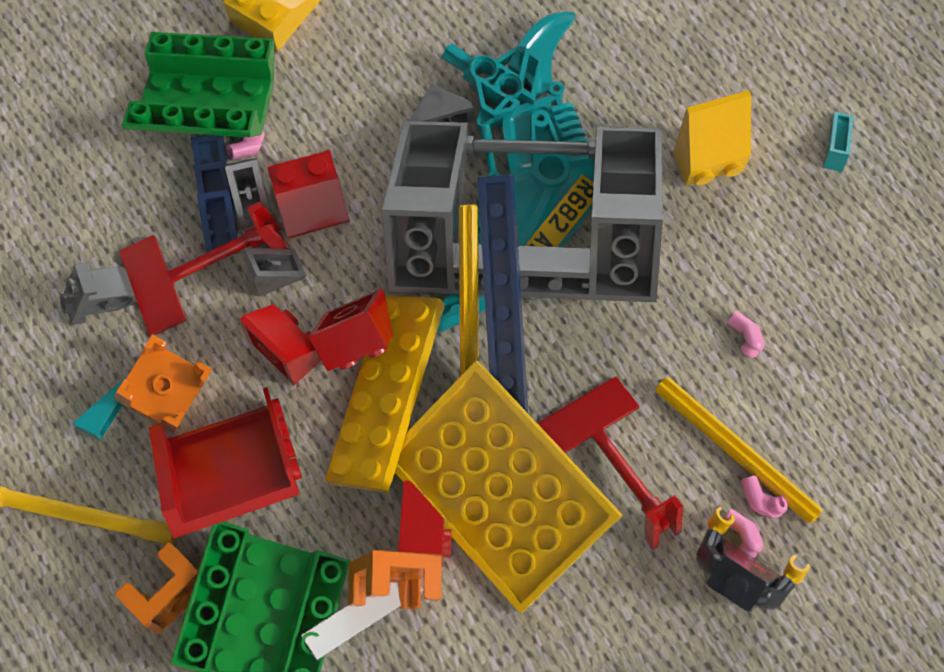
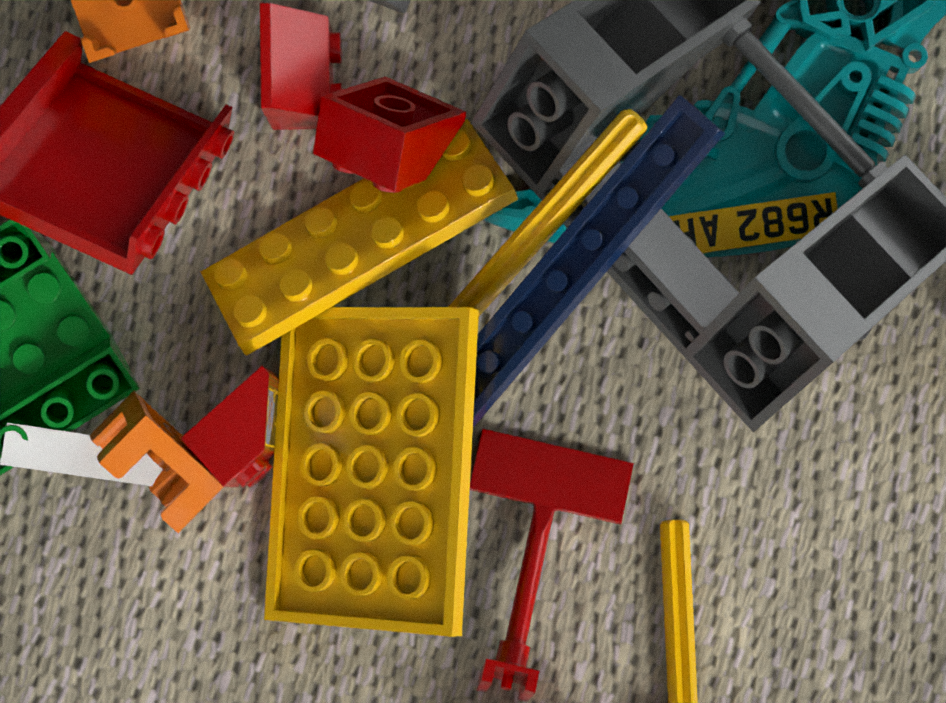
camera: 45 degrees right, 15 degrees up
(751, 333) = (835, 565): bright pink arm -> none

